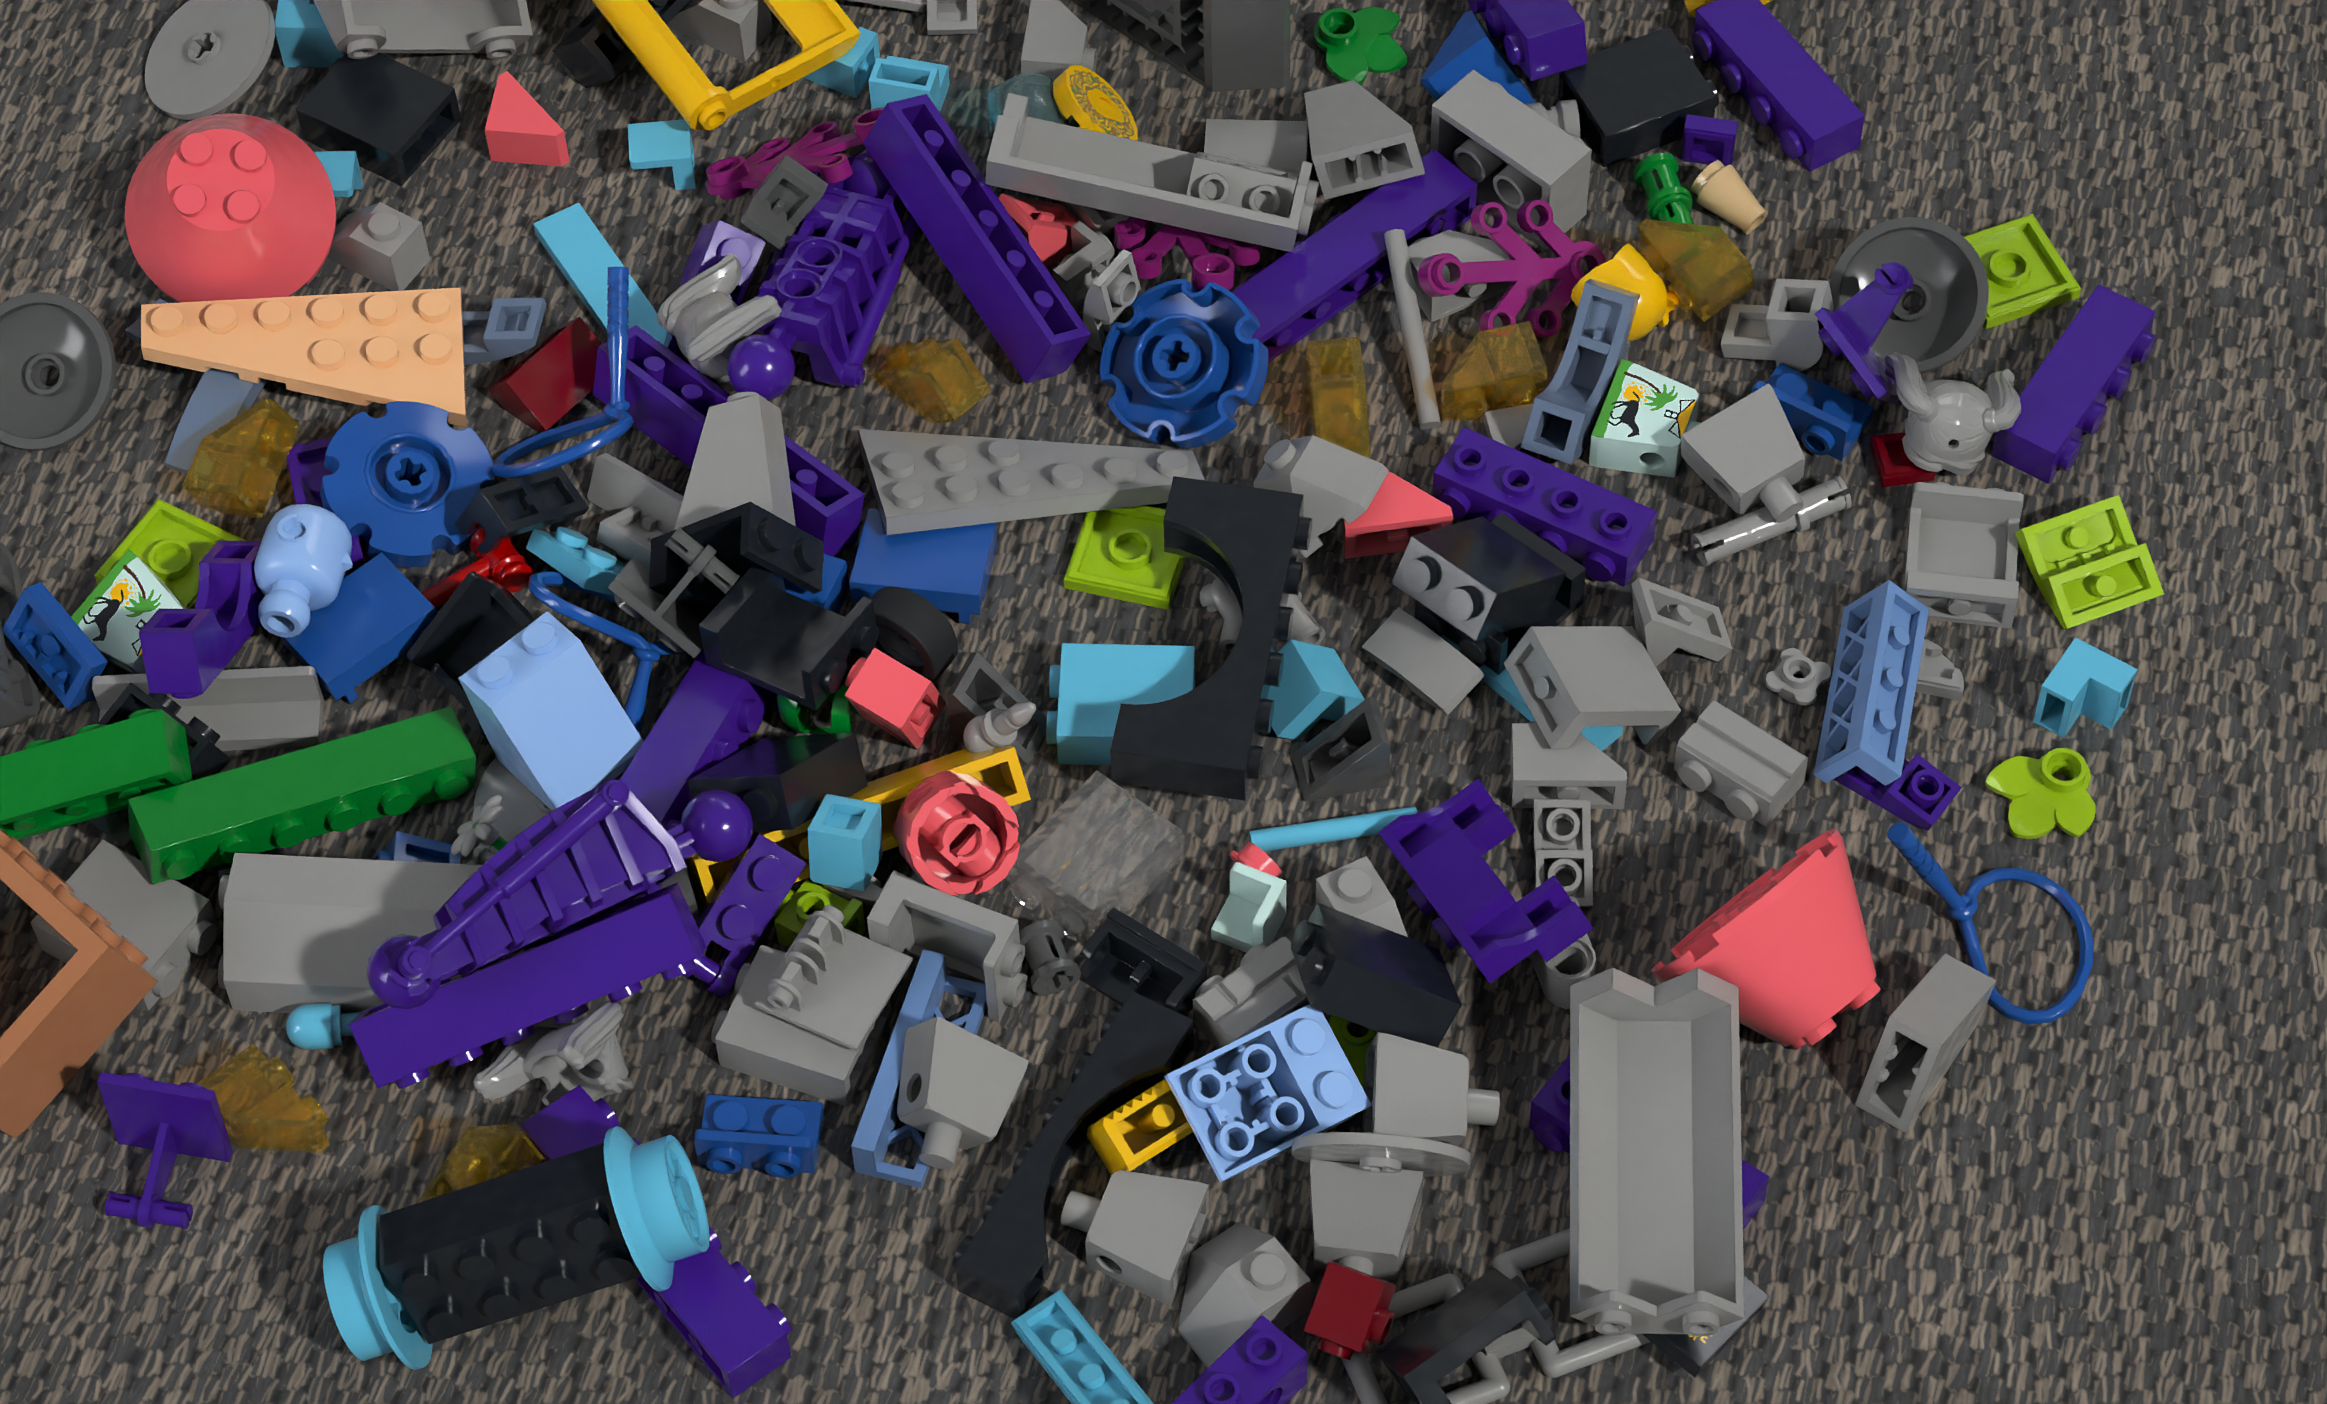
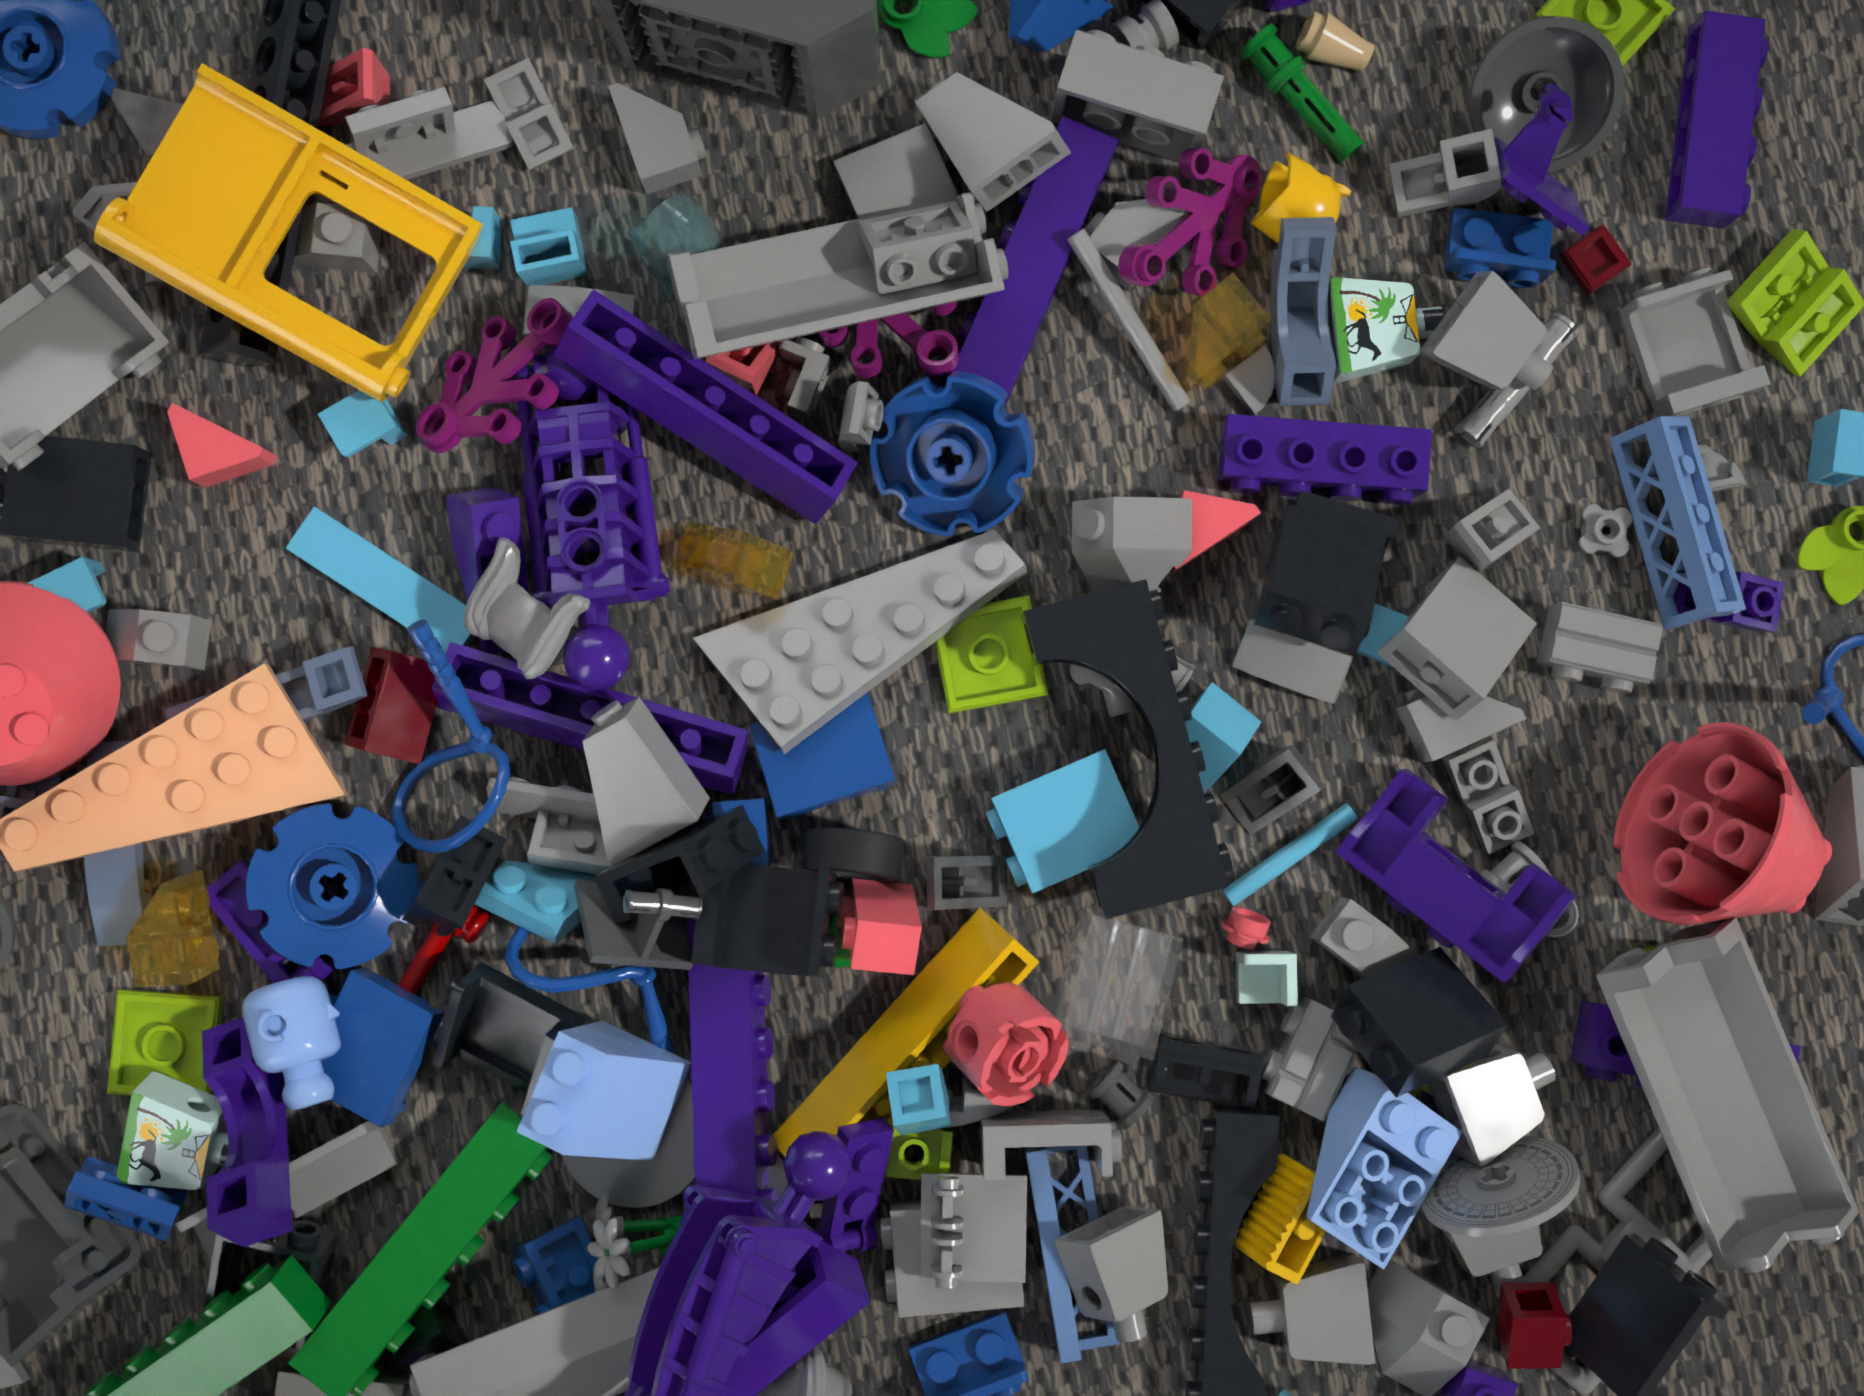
camera: 30 degrees left, 30 degrees up
(782, 201) = (512, 458): dark grey bracket -> none
(787, 777) = (830, 1064): black brick -> none
(997, 727) = (986, 922): light grey bar -> none
(1093, 103) = (734, 202): tile -> none
(1338, 393) = (1101, 428): clear yellow slope -> none
(1699, 263) = (1357, 146): clear yellow slope -> none
(1950, 411) = (1643, 213): light grey hair -> none

